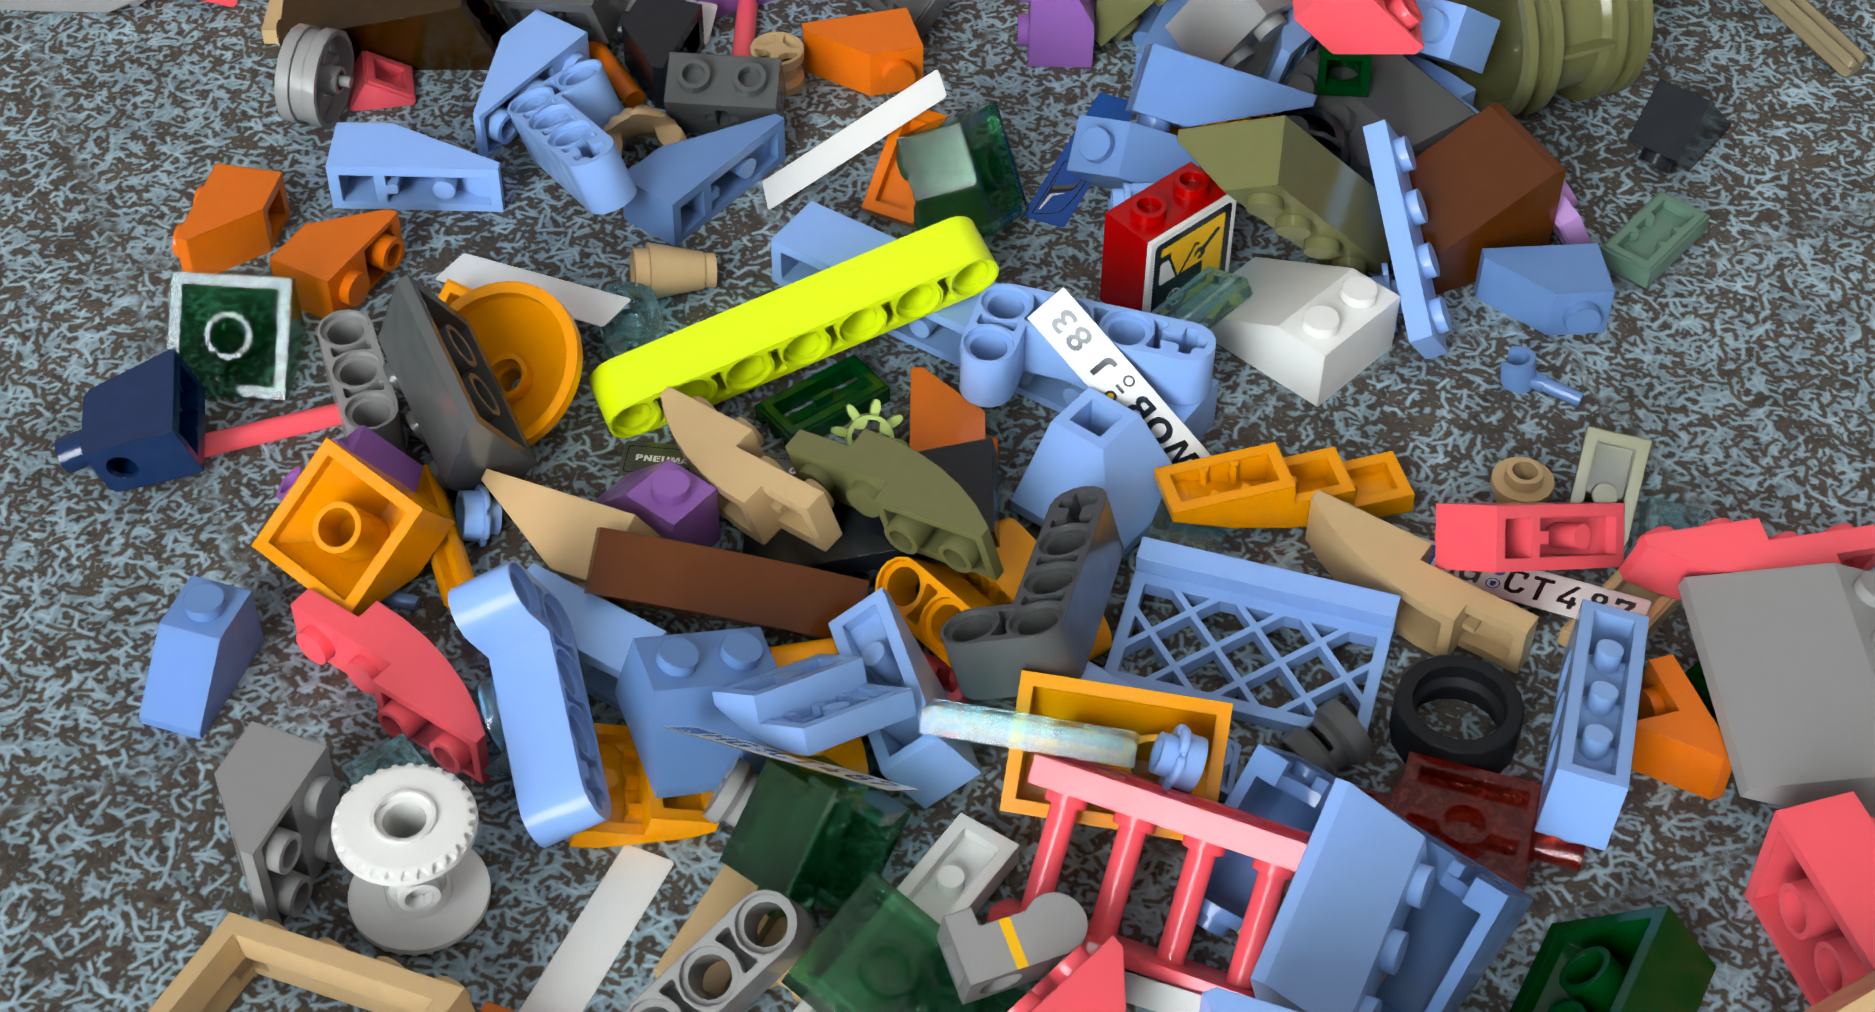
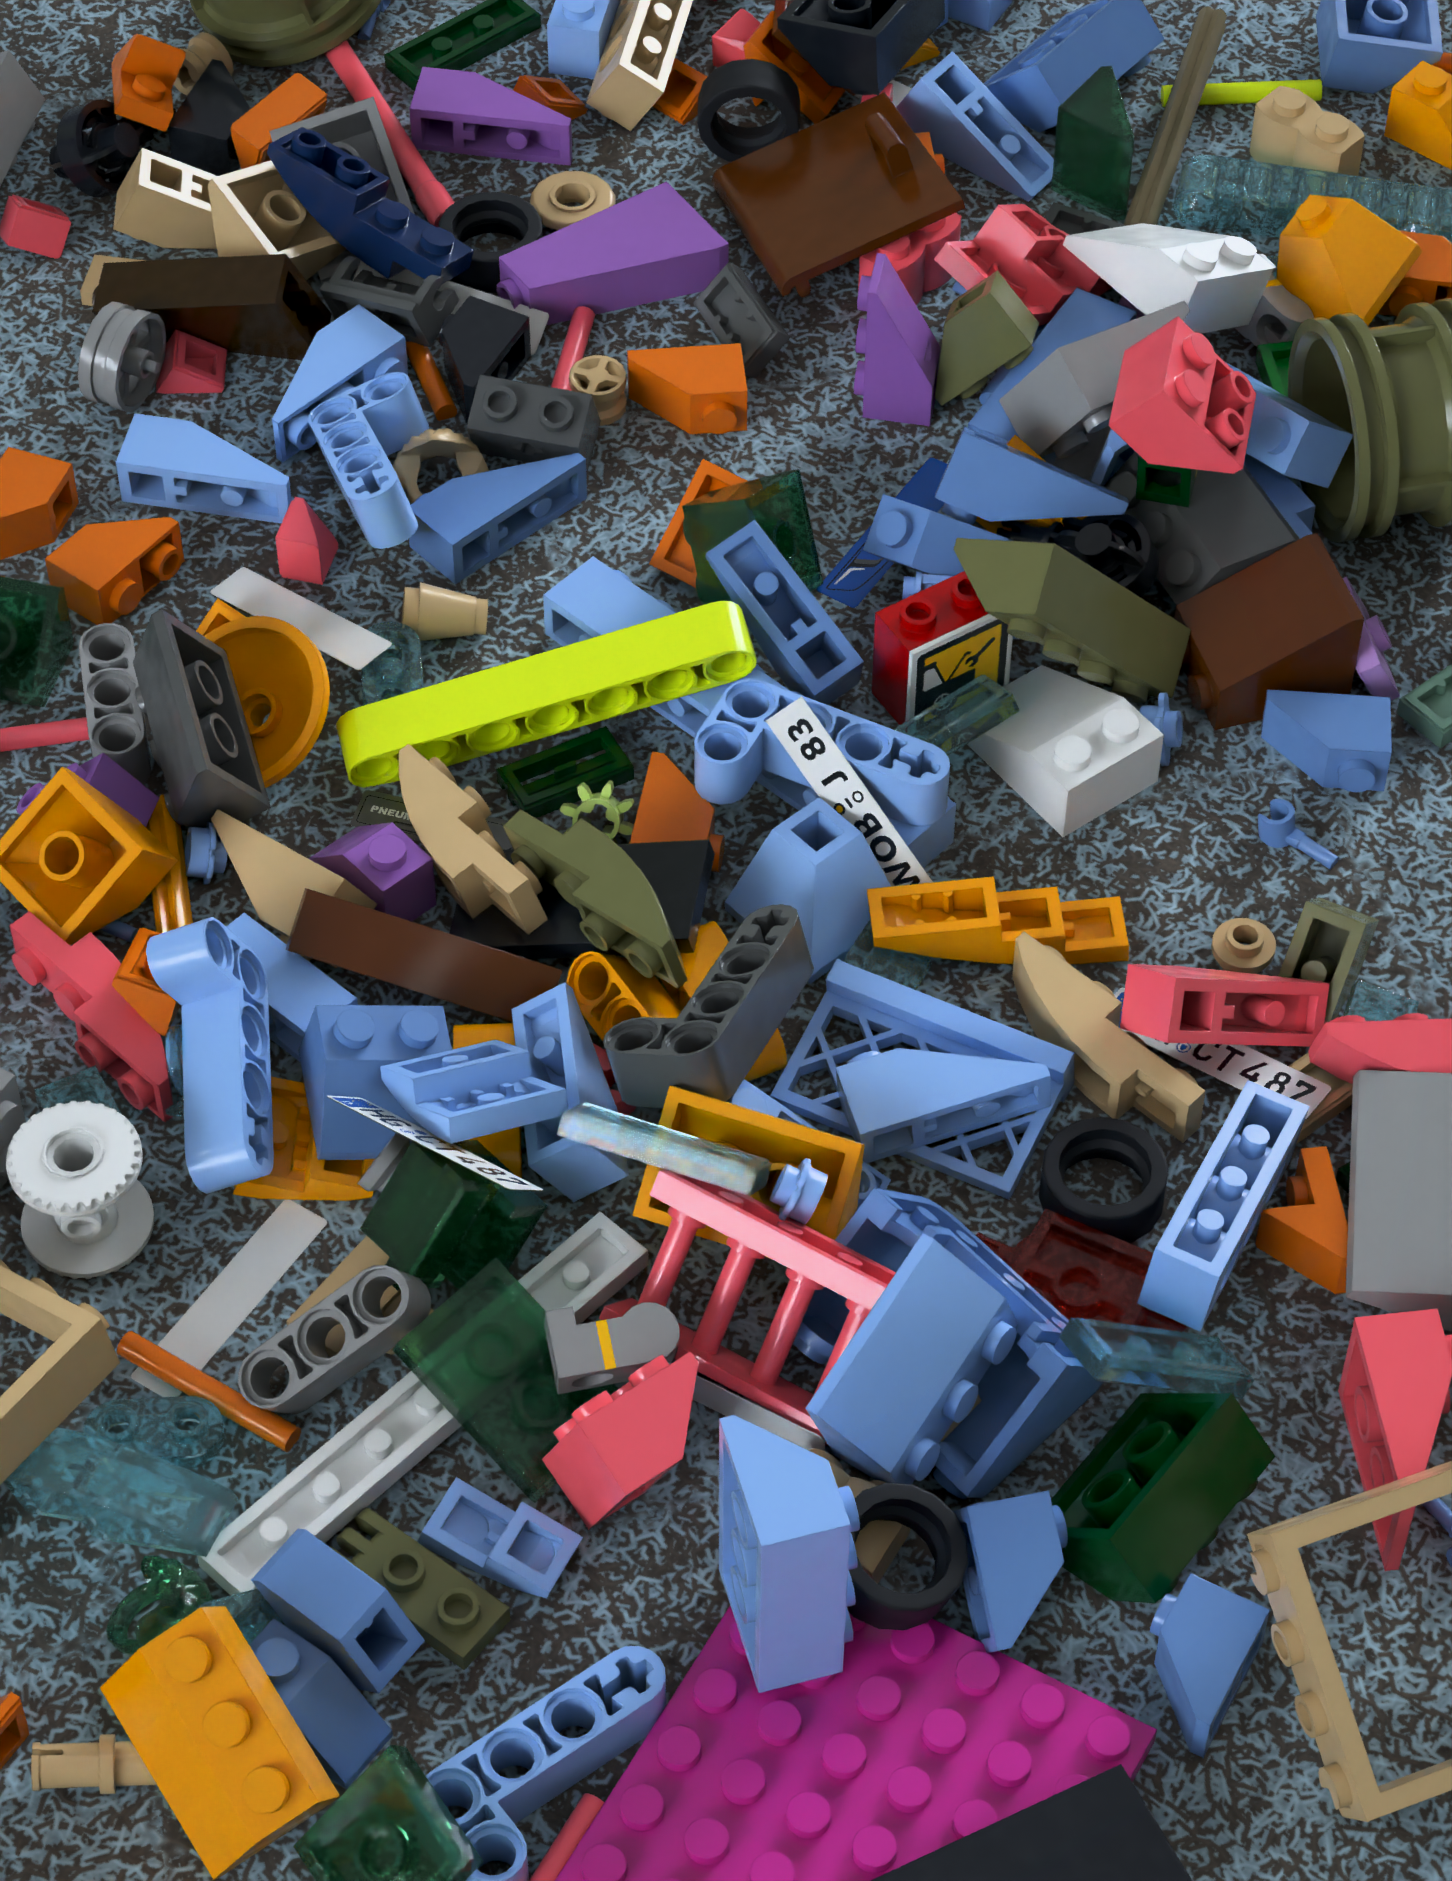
camera: 10 degrees right, 5 degrees up
(444, 643) = (140, 989): none -> orange slope
(522, 224) = (304, 544): none -> coral slope
(854, 139) = (651, 491): white sticker -> none
(1016, 229) = (785, 616): none -> medium blue slope
(1274, 653) = (927, 1096): none -> light blue slope
(1330, 739) = (977, 1183): dark grey wheel -> none
(1411, 258) = (1187, 692): light blue plate -> none
(1572, 881) = (1155, 1358): none -> clear light blue tile

